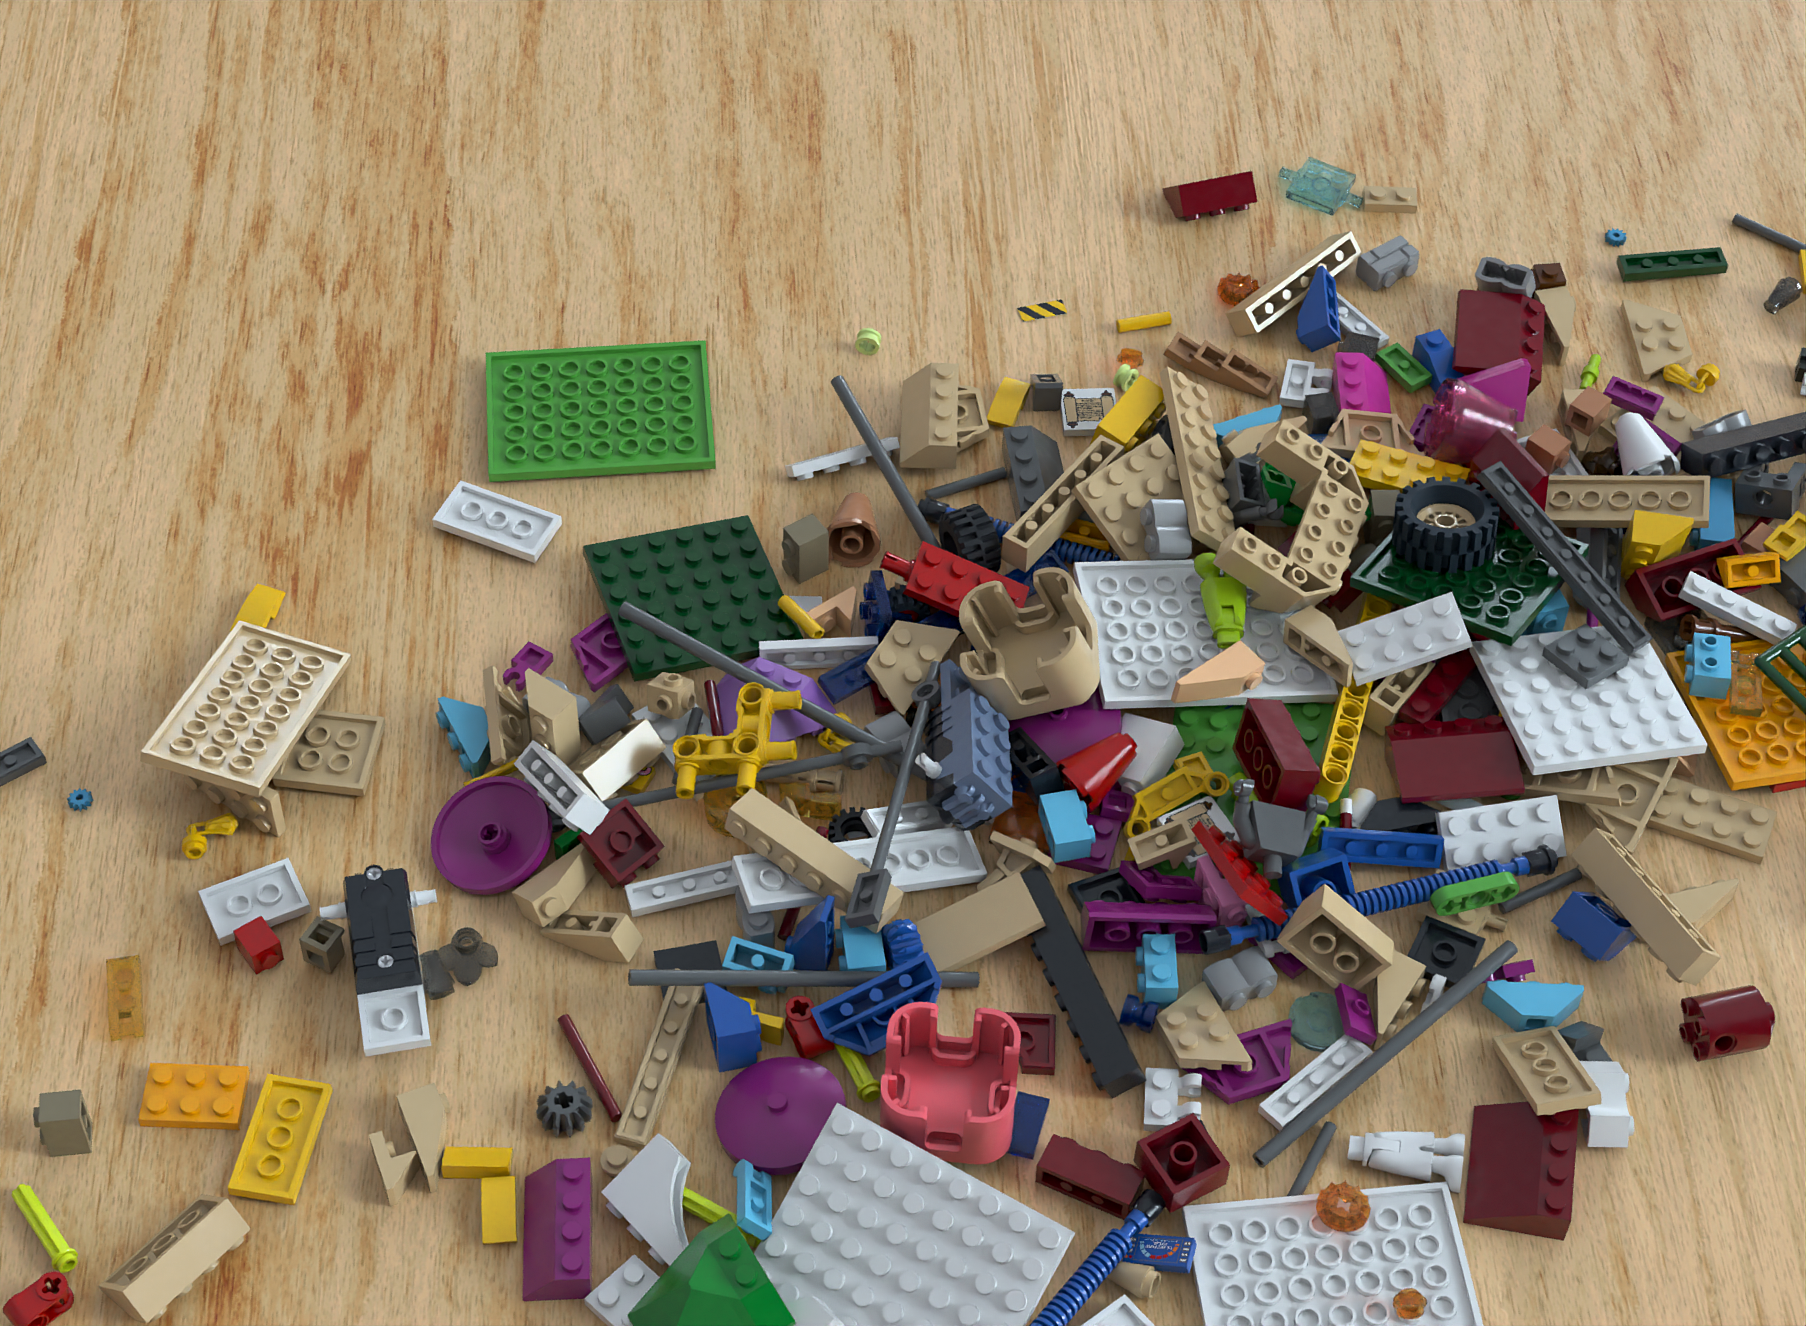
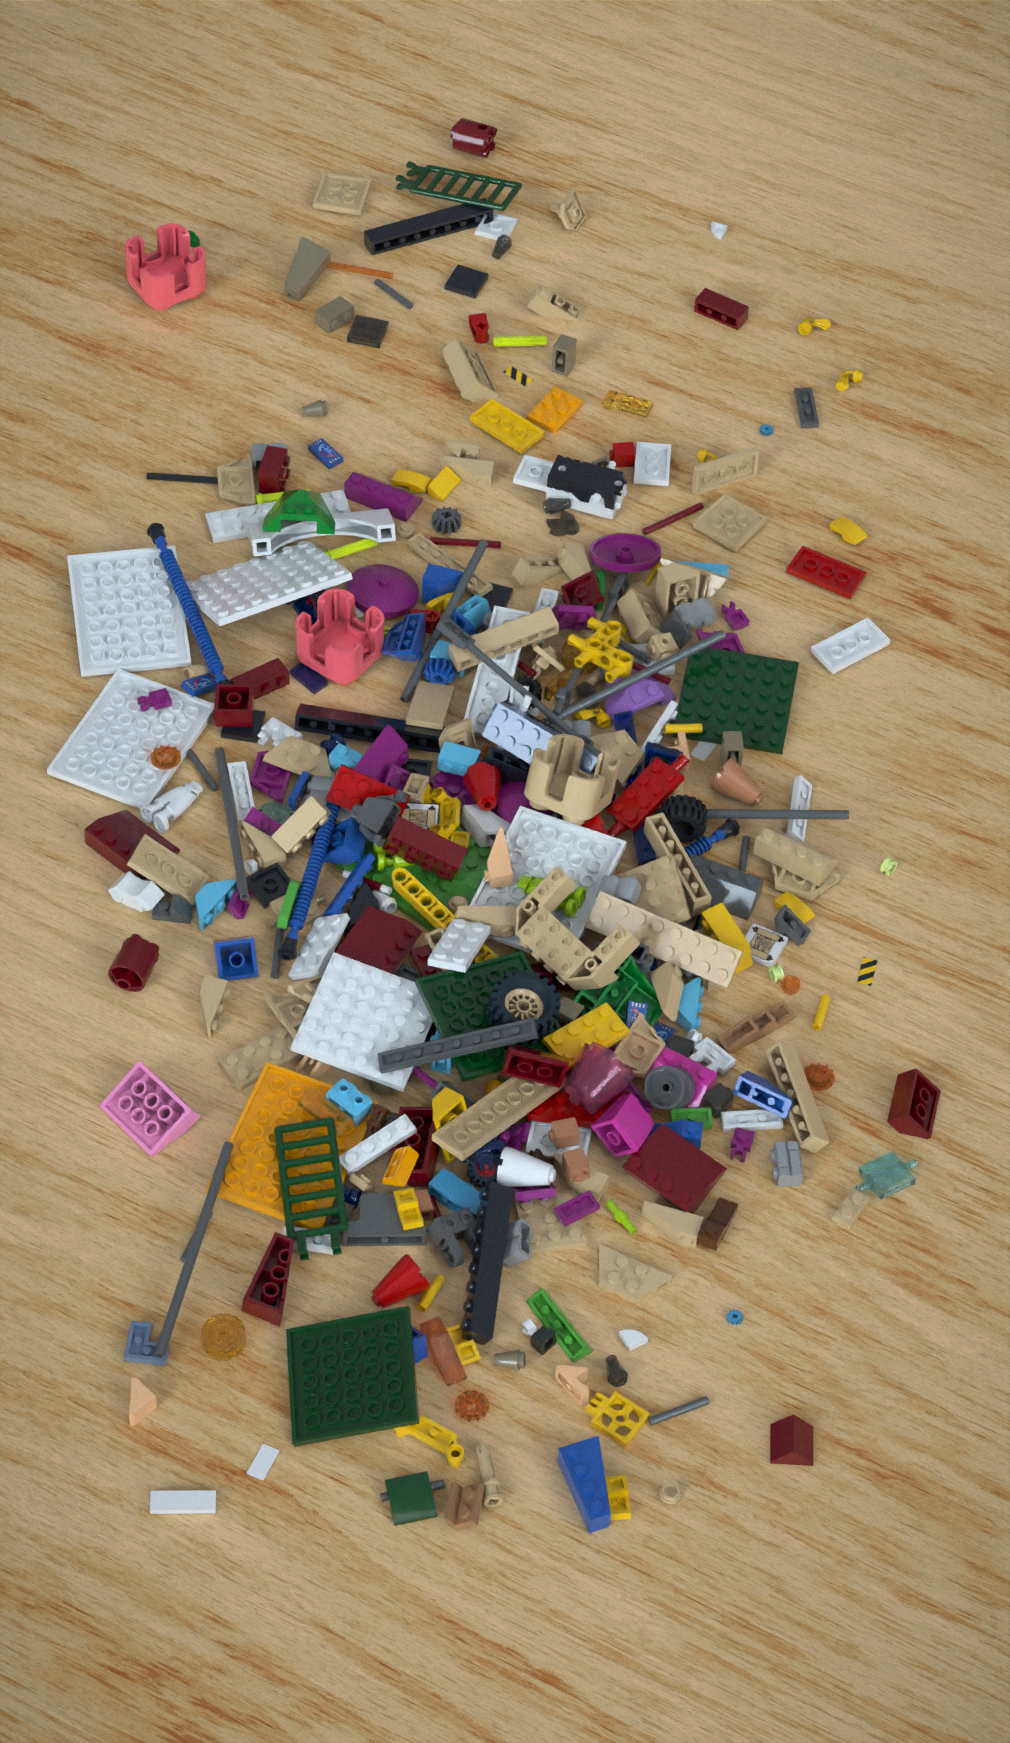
camera: 120 degrees right, 0 degrees up
(131, 1195) = (518, 376): none -> sticker
(246, 709) = (766, 485): tan plate -> none
(360, 828) = (673, 518): none -> dark red bar
(365, 602) = (826, 572): none -> red plate
(561, 788) = (622, 569): white brick -> none
(598, 411) = (910, 723): bright green plate -> none
(690, 828) = (573, 616): none -> magenta wing
(753, 1200) = (340, 553): medium azure plate -> none
(818, 741) = (584, 690): none -> clear smoke brick
(1037, 1042) = (357, 701): dark red tile -> none
(1243, 1286) = (157, 699): none -> magenta plate
(1257, 1008) = (299, 790): none -> blue tile
(1295, 406) = (694, 1035): none -> white plate
(1304, 716) = (457, 901): none -> tan plate
(1391, 319) = (741, 1143): none -> magenta plate
(1397, 382) = (669, 1087): none -> dark grey wheel
(1409, 1303) = (97, 750): clear orange plate -> none
(1497, 276) = (718, 1197): light grey brick -> none
(1585, 656) = (390, 1029): dark grey plate -> none
(1645, 907) = (224, 968): tan brick -> none
(1672, 264) = (685, 1326): dark green plate -> none
(1706, 375) = (576, 1277): yellow piece -> none
(1718, 138) = (791, 1442): none -> dark red slope
(1727, 302) = (632, 1338): none -> white tile
(1772, 368) = (553, 1317): none -> bright green slope
(1791, 609) = (362, 1182): none -> tan plate

